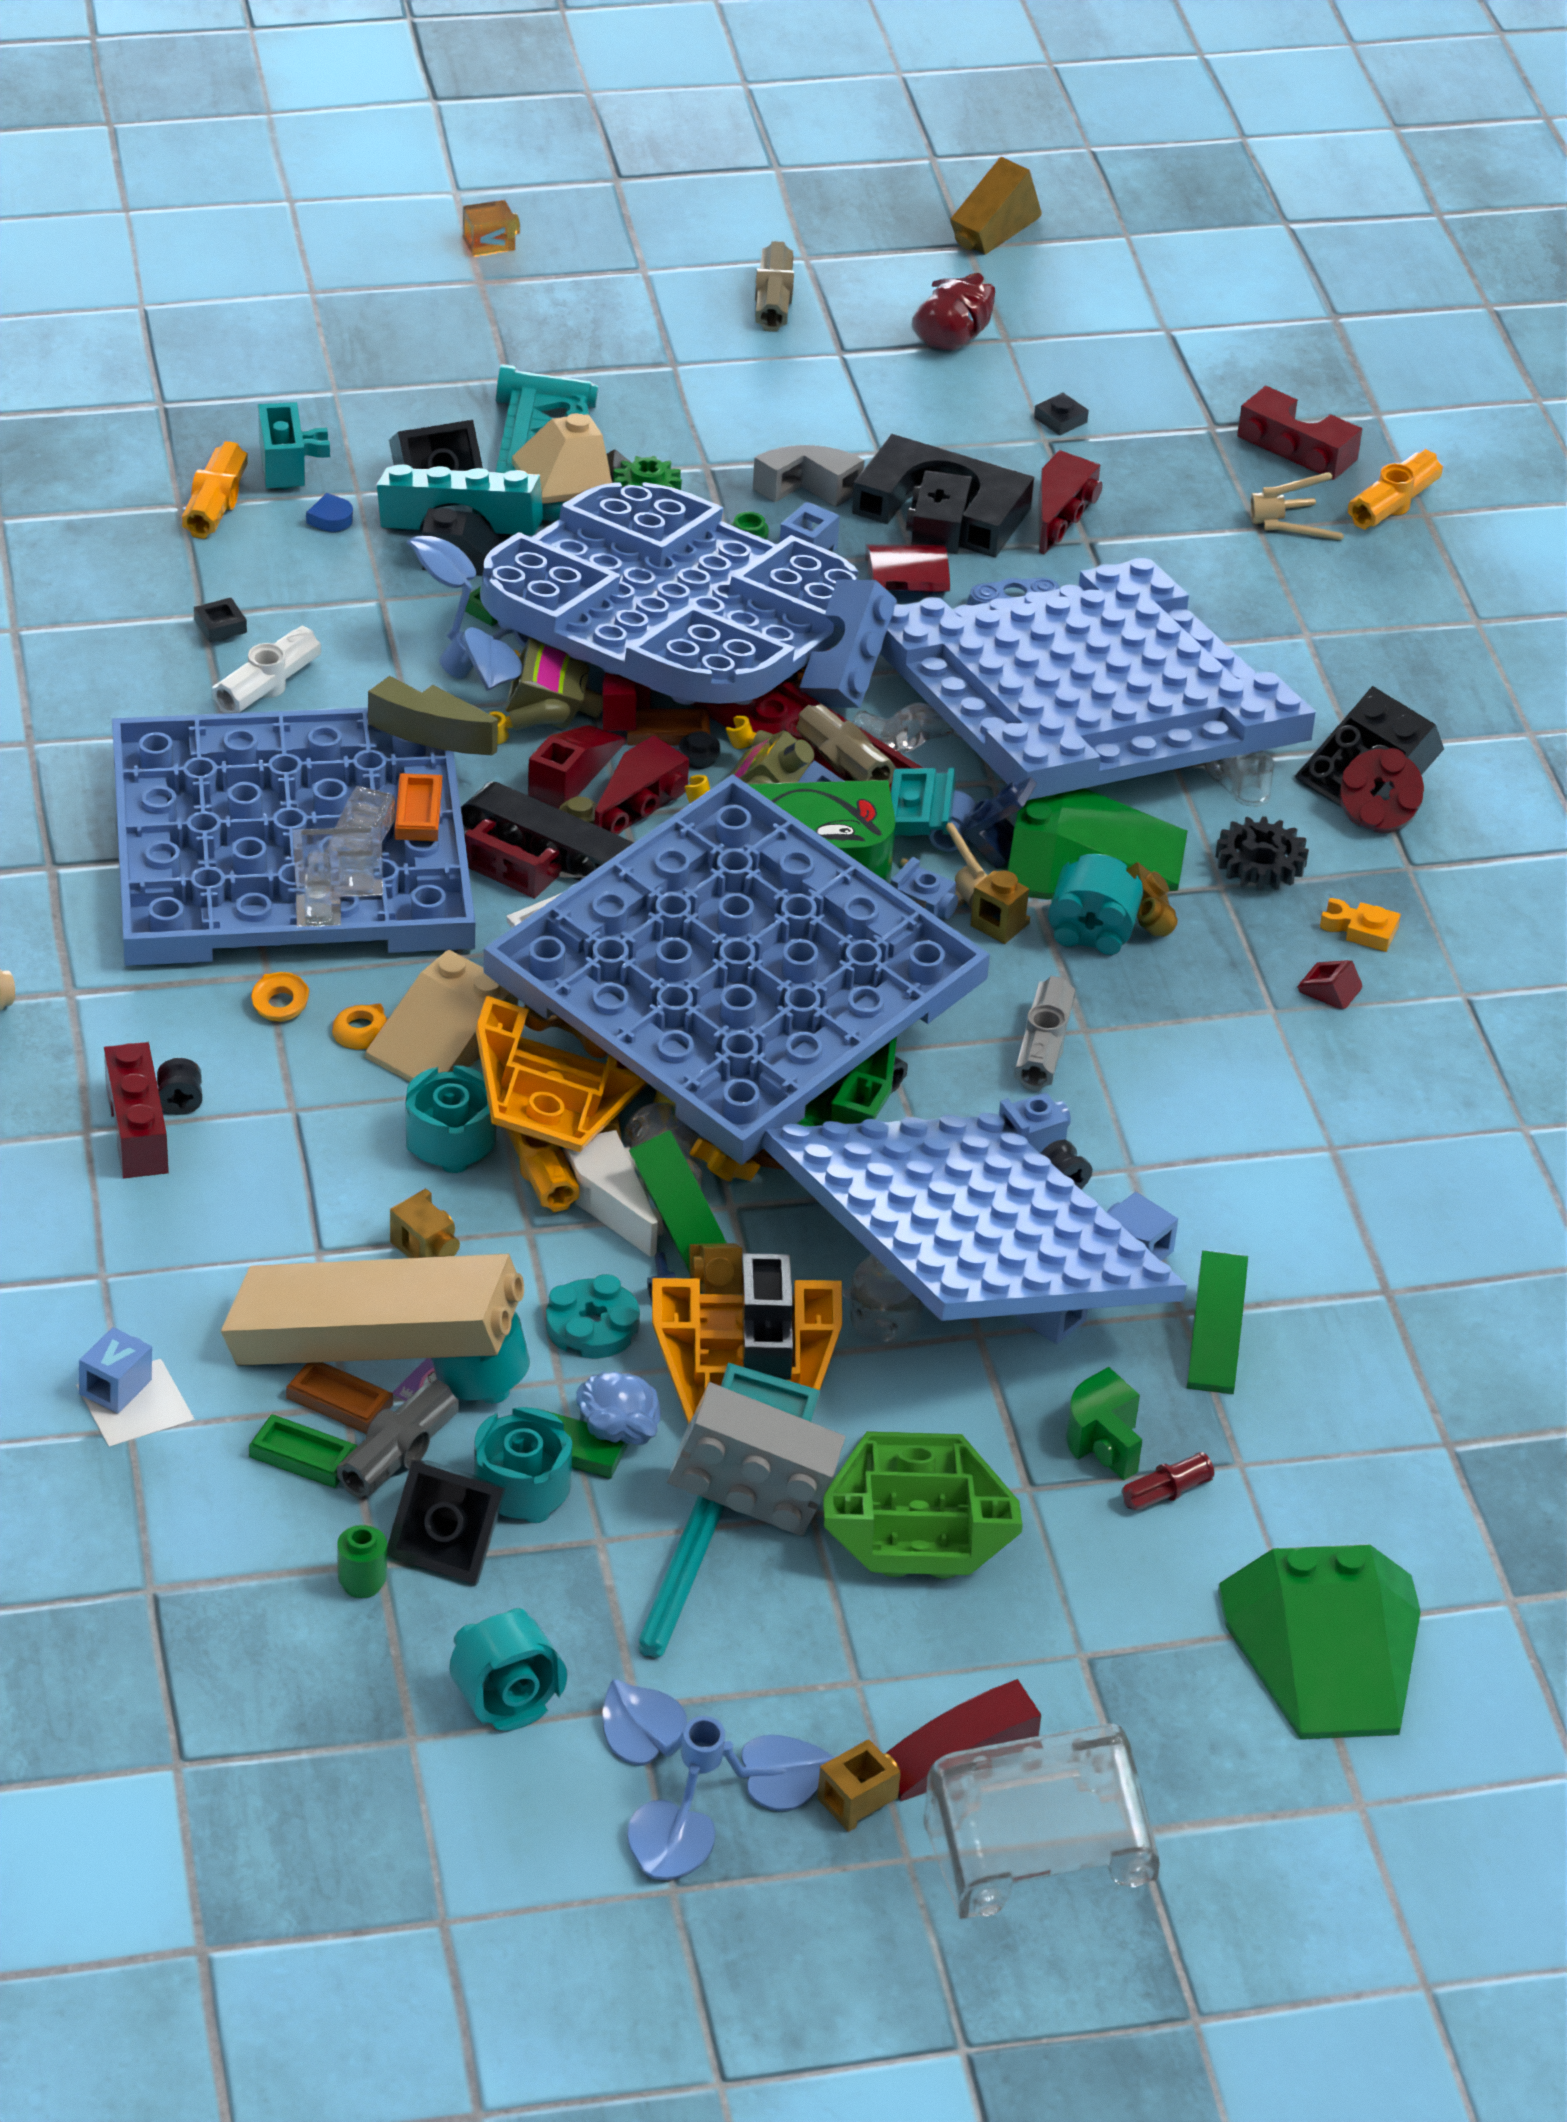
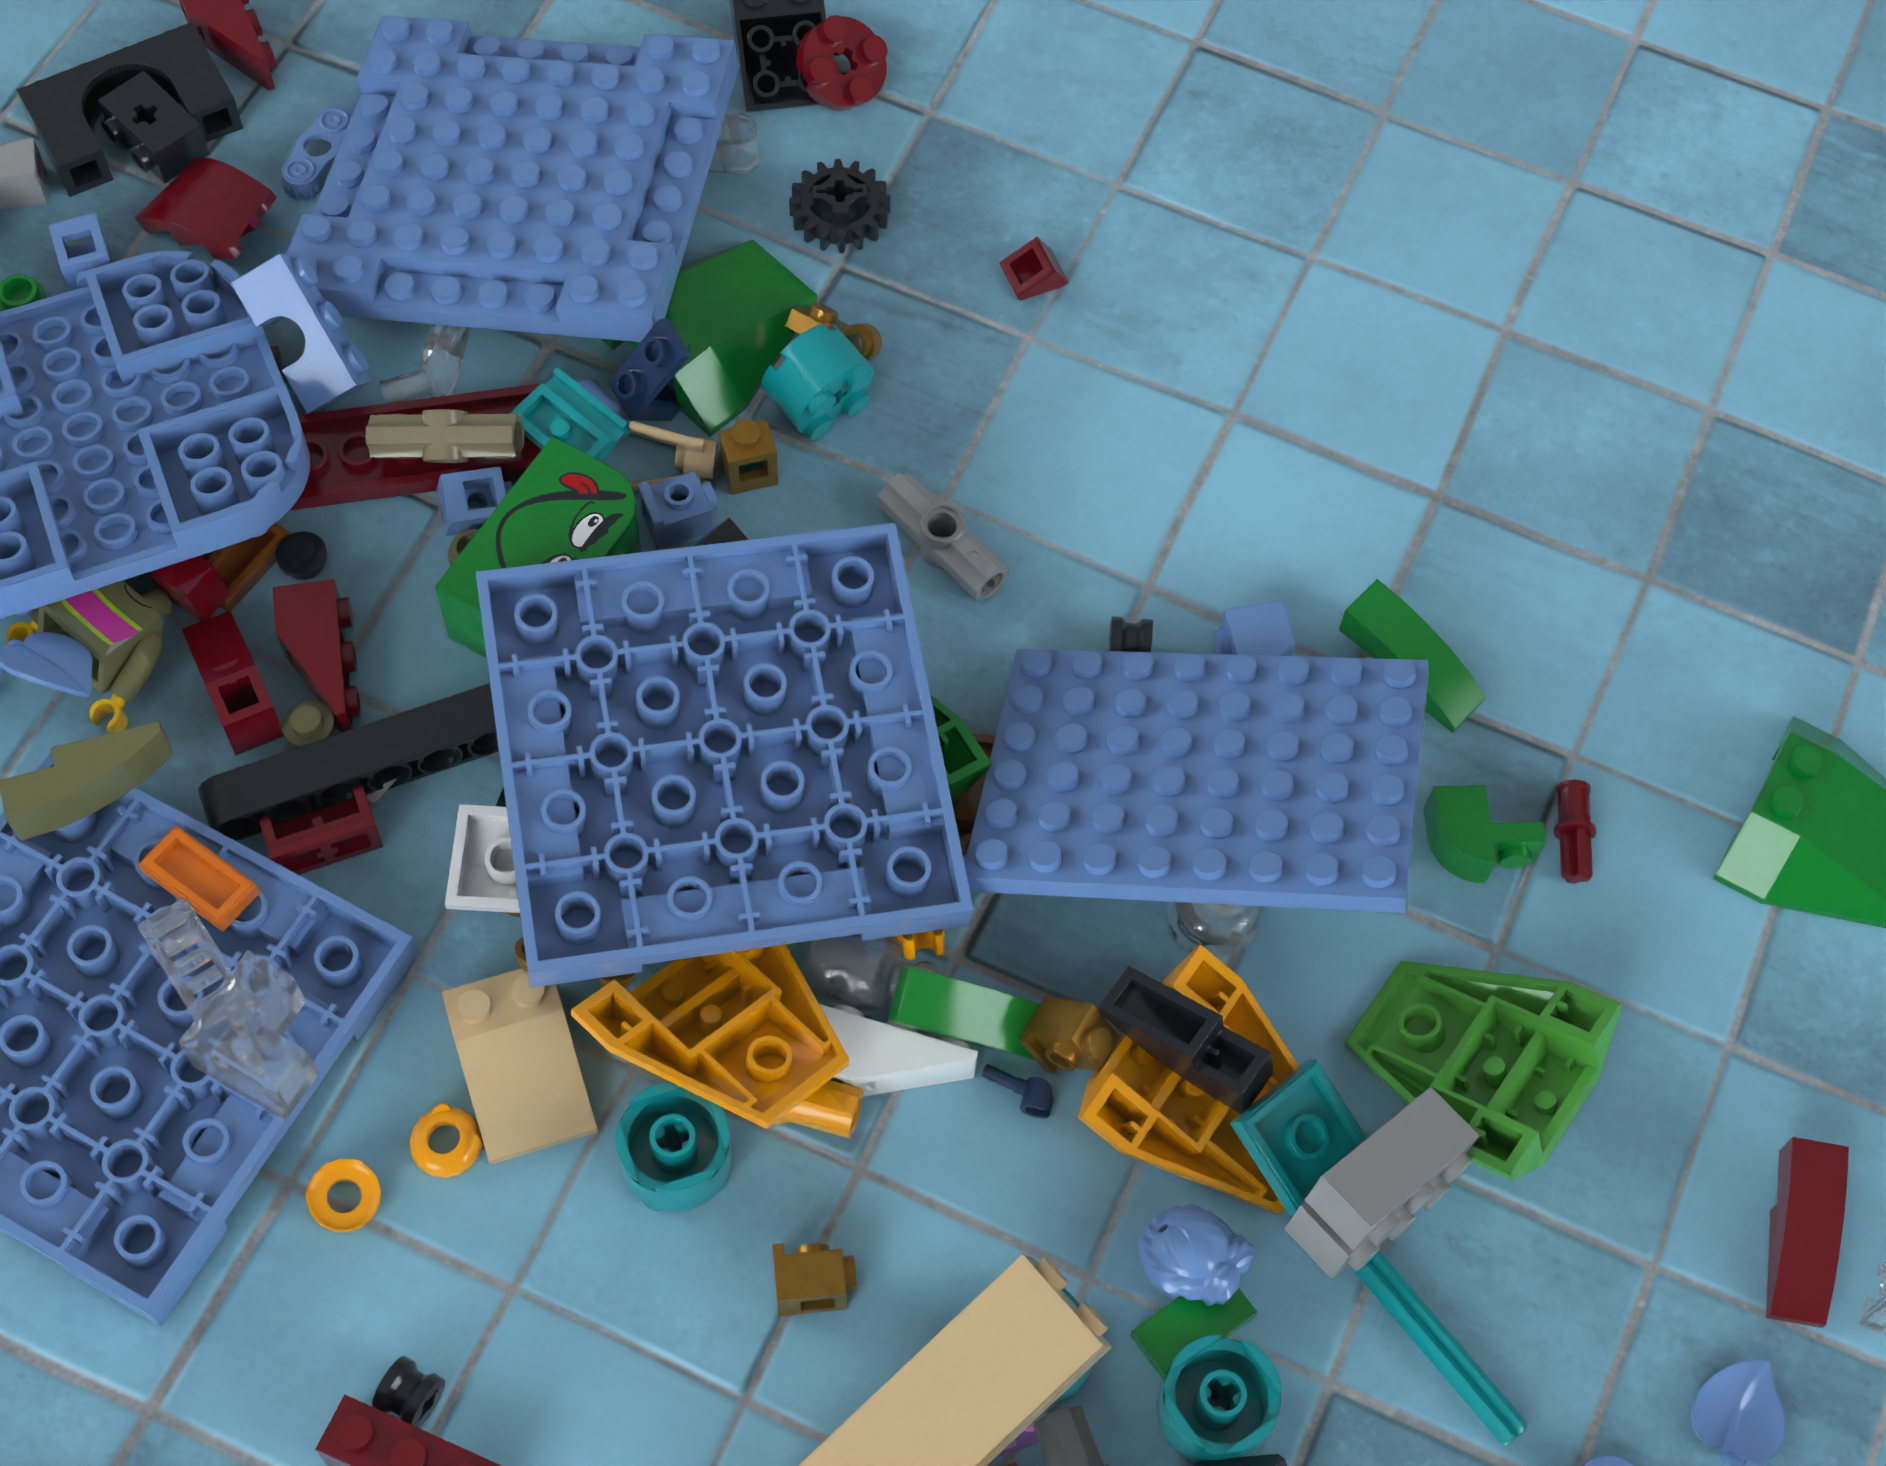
camera: 55 degrees left, 20 degrees up
(592, 1296) = (1016, 1162): teal plate -> none
(769, 760) = (407, 527): torso -> none
(858, 1783) = (1826, 1345): pearl gold brick -> none
(1037, 1119) = (1054, 620): medium blue brick -> none
(1365, 925) = (979, 191): light orange plate -> none

